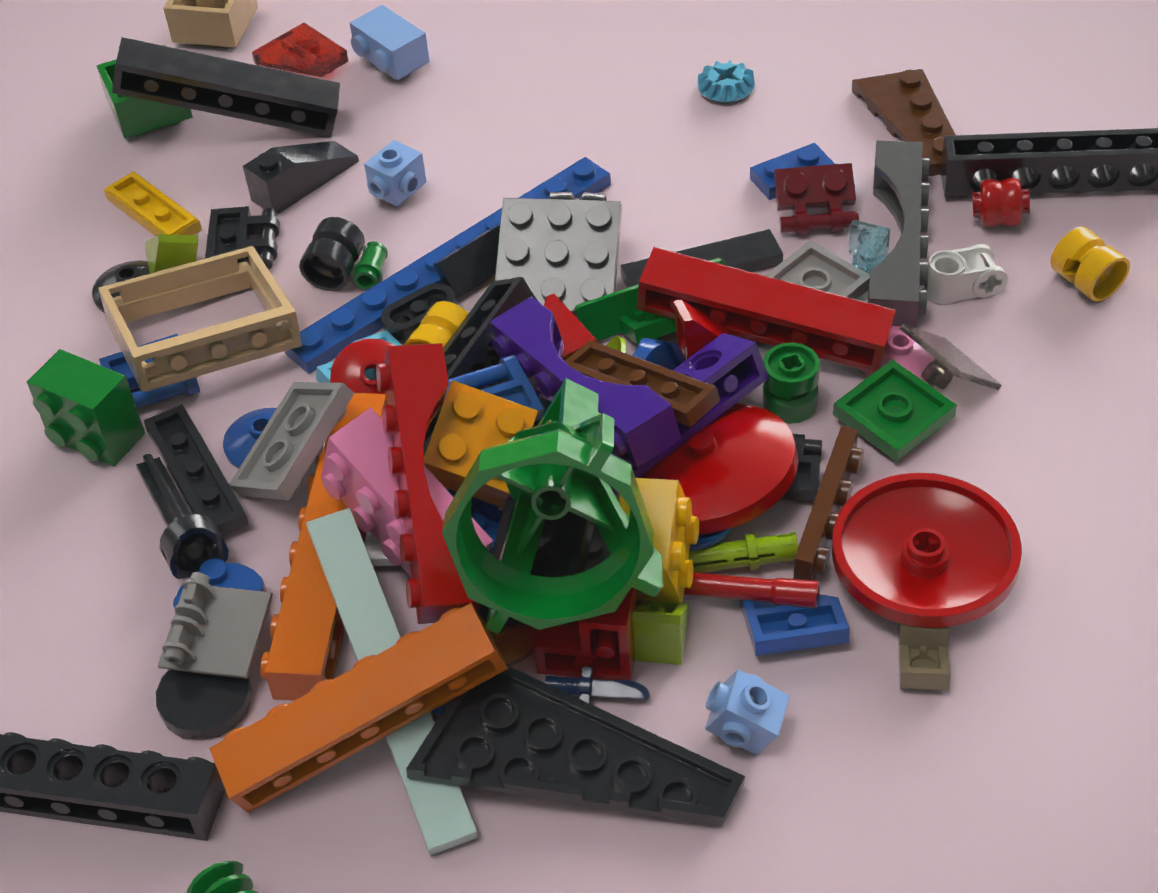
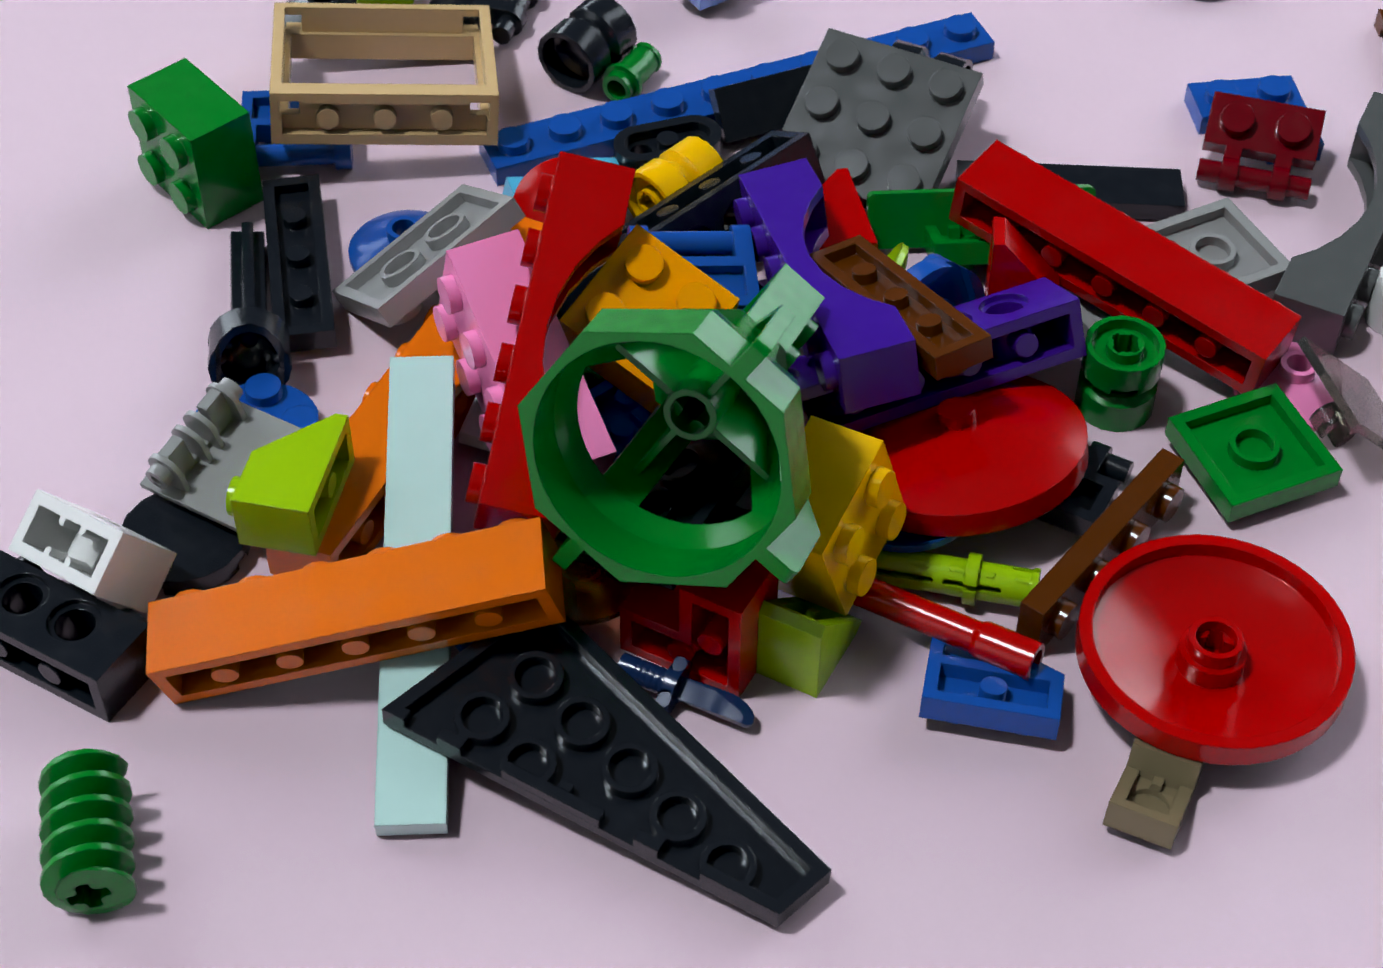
camera: 15 degrees right, 0 degrees up
(151, 725) = (92, 551): none -> white brick
(277, 636) = (292, 487): none -> lime slope
(746, 711) = (868, 783): light blue brick -> none
(868, 244) = (1307, 223): clear light blue bracket -> none

